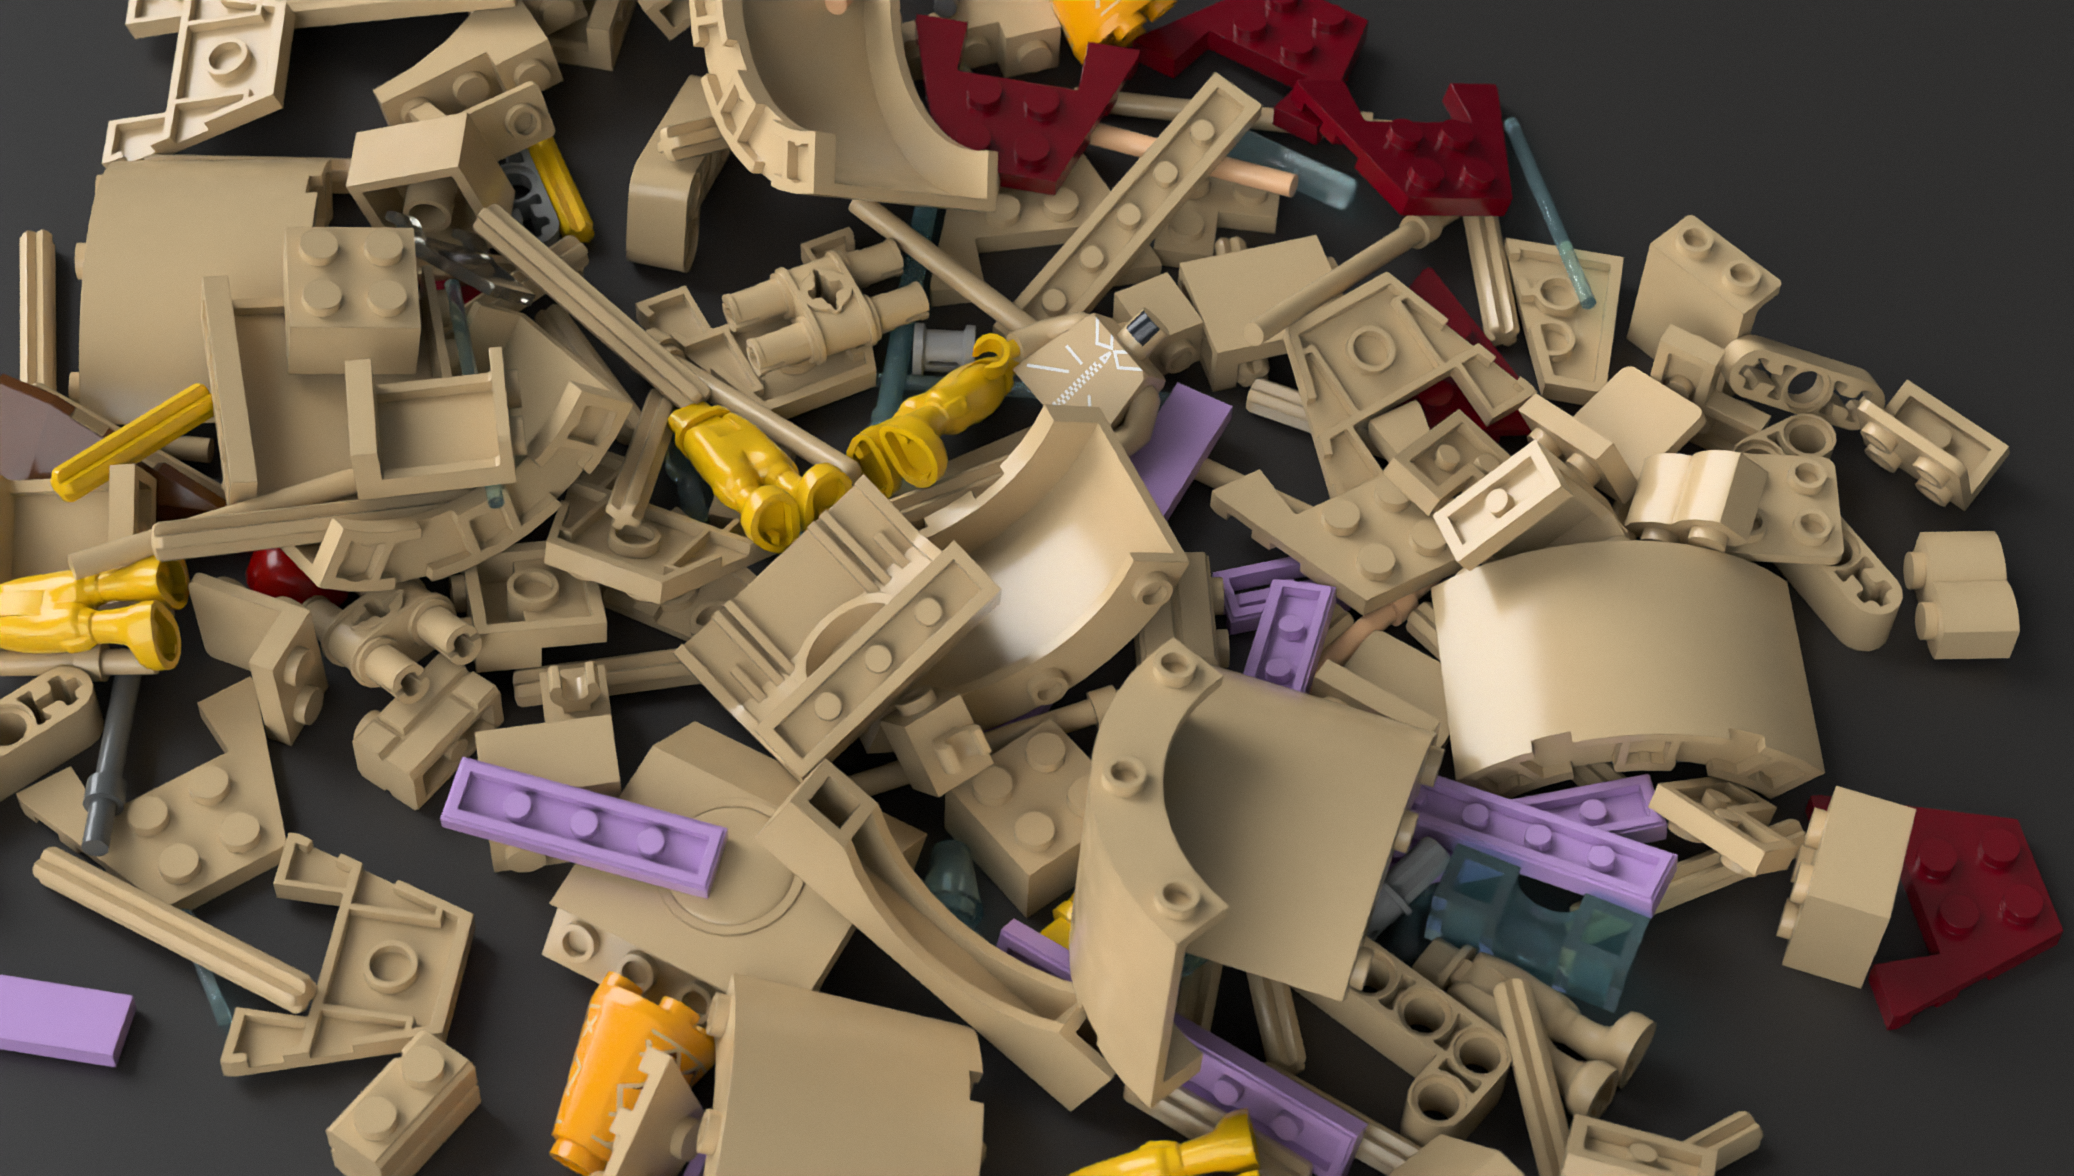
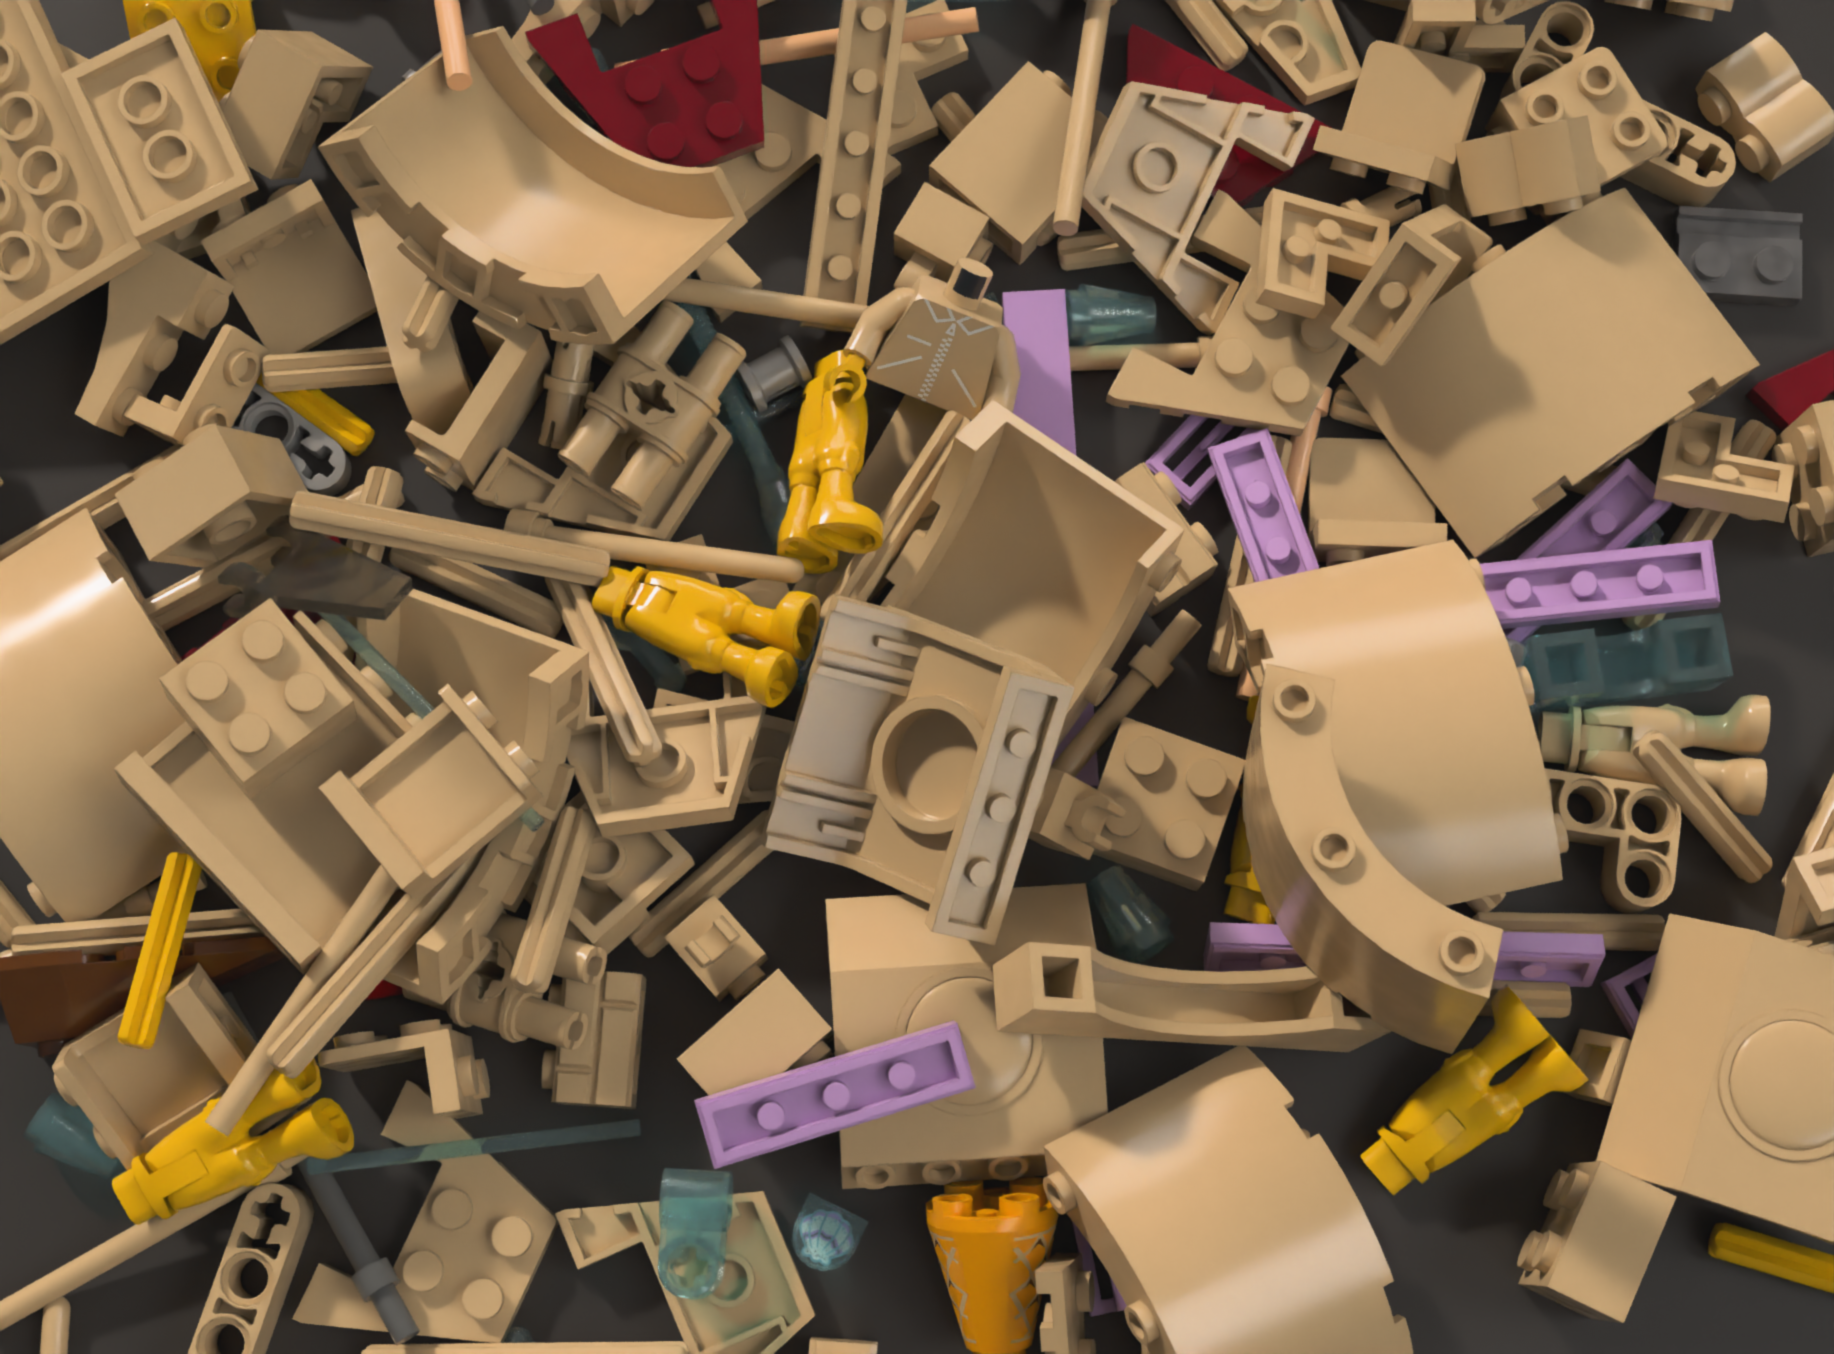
camera: 30 degrees left, 25 degrees up
(265, 750) = (475, 1147): none -> clear light blue axle
(390, 897) = (692, 1216): none -> clear light blue piece
(467, 580) = (553, 901): none -> tan axle
(502, 991) = (826, 1234): none -> clear light blue tile
(582, 161) = (327, 369): none -> tan axle
(613, 86) = (292, 270): none -> tan bracket
(697, 243) = (492, 410): none -> tan panel
(785, 250) = (566, 392): none -> tan pin
(1252, 445) = (1107, 314): none -> clear light blue cone
(1869, 697) = (1741, 253): none -> flat silver plate

